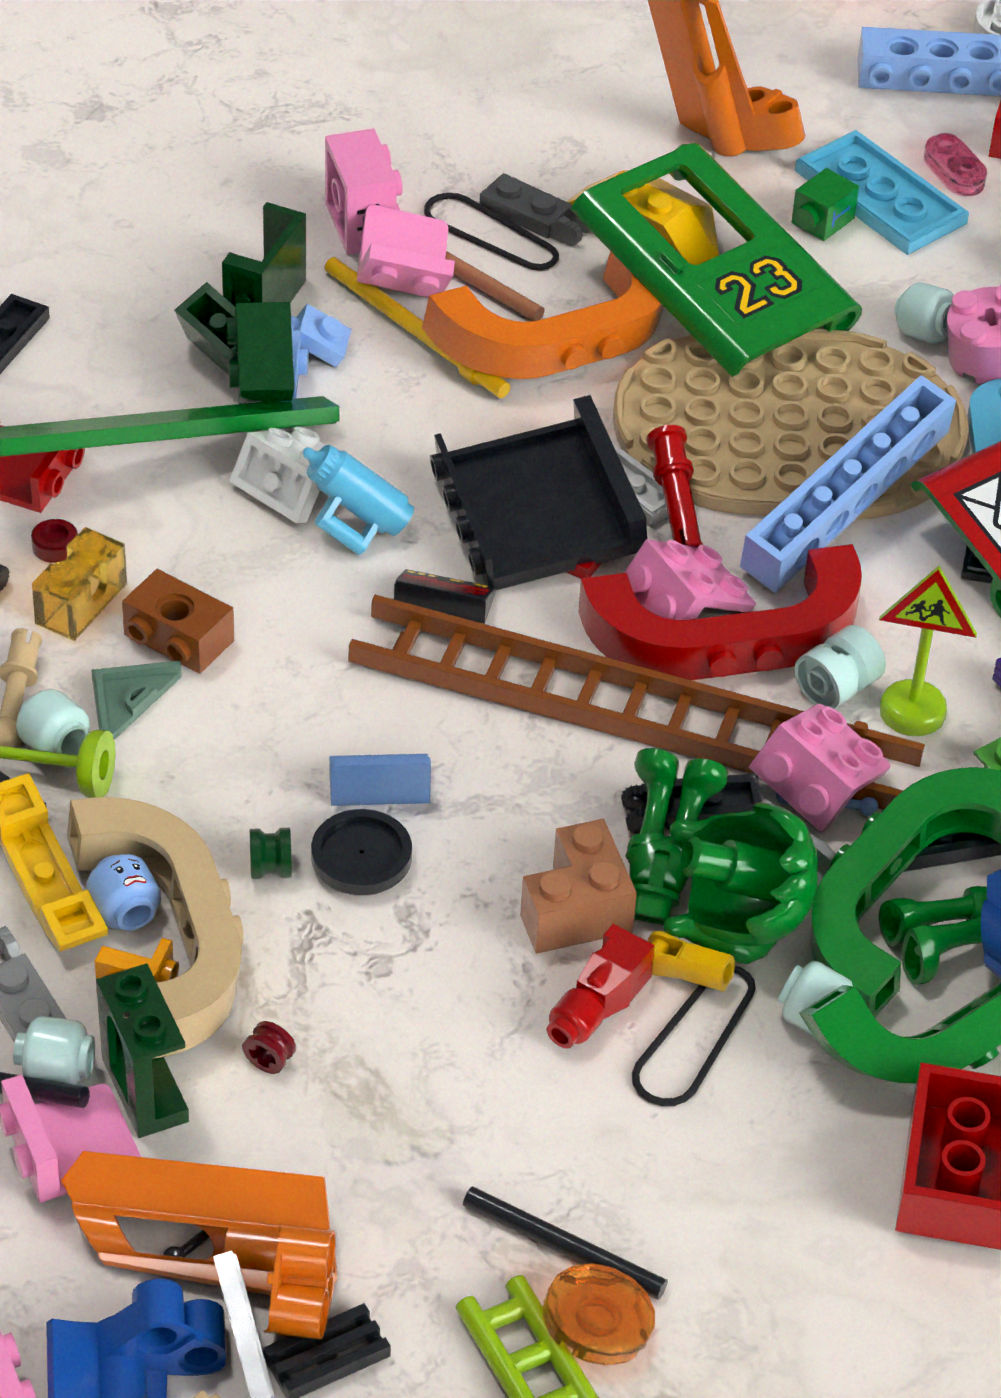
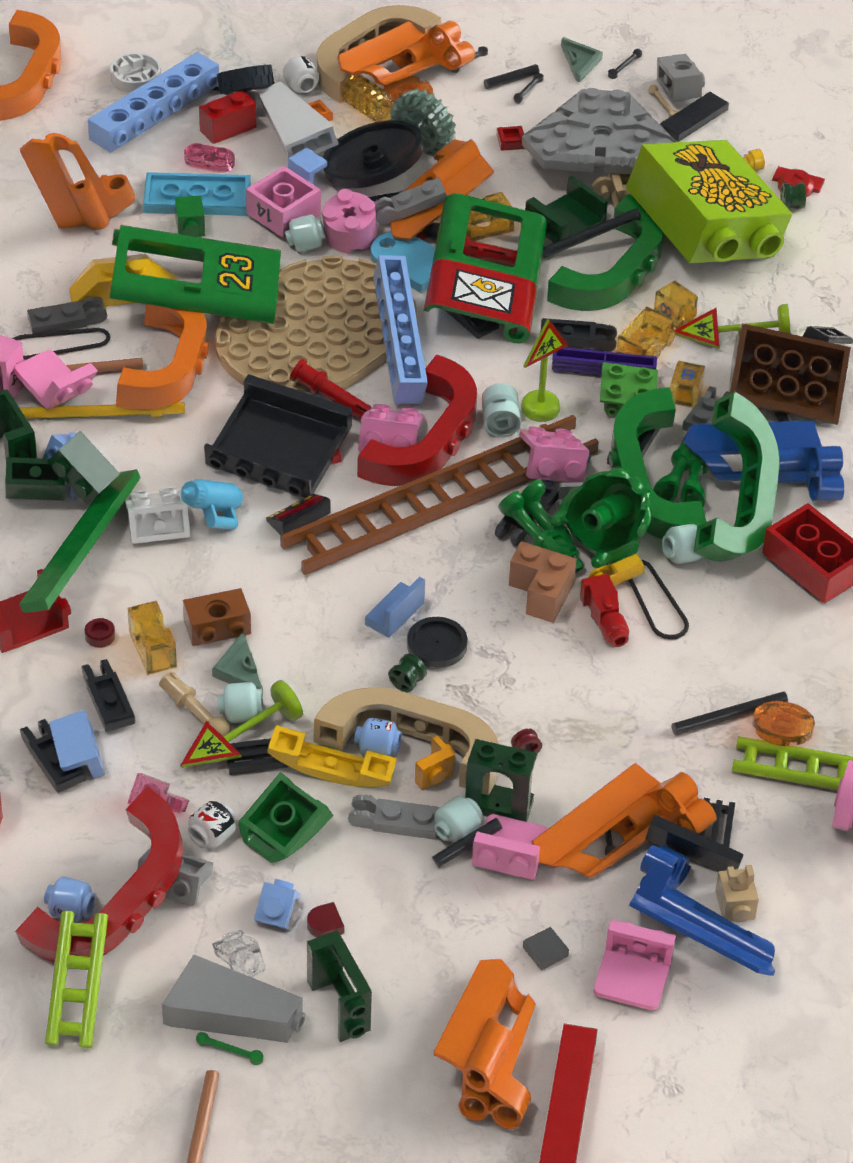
camera: 50 degrees left, 0 degrees up
(949, 250) = (282, 198): none -> bright pink brick

